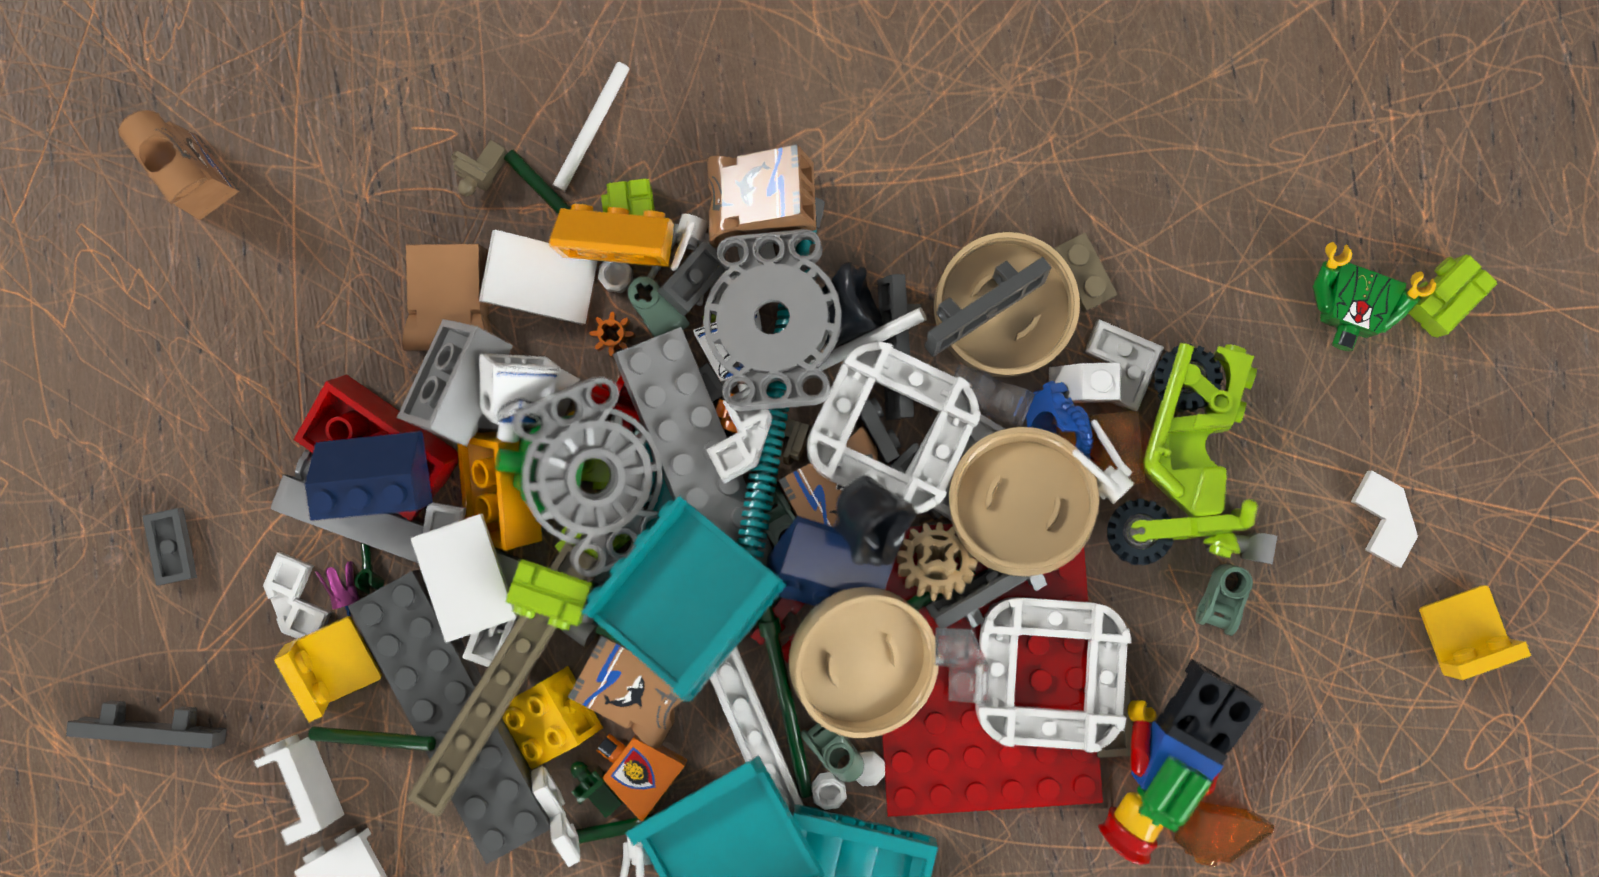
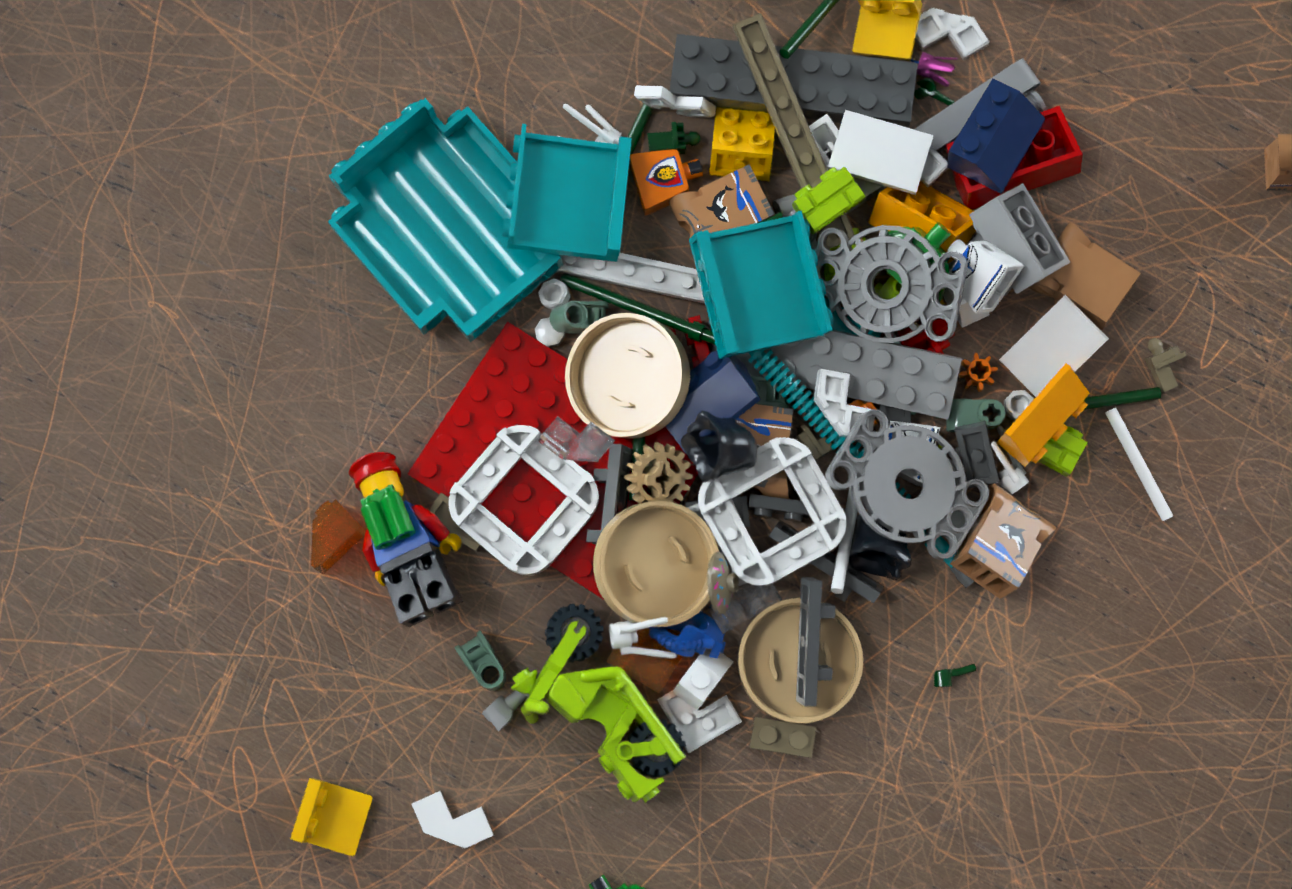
camera: 130 degrees right, 5 degrees down
(920, 166) = (943, 677): none -> dark green hand
(996, 427) = (721, 583): none -> dark tan dish

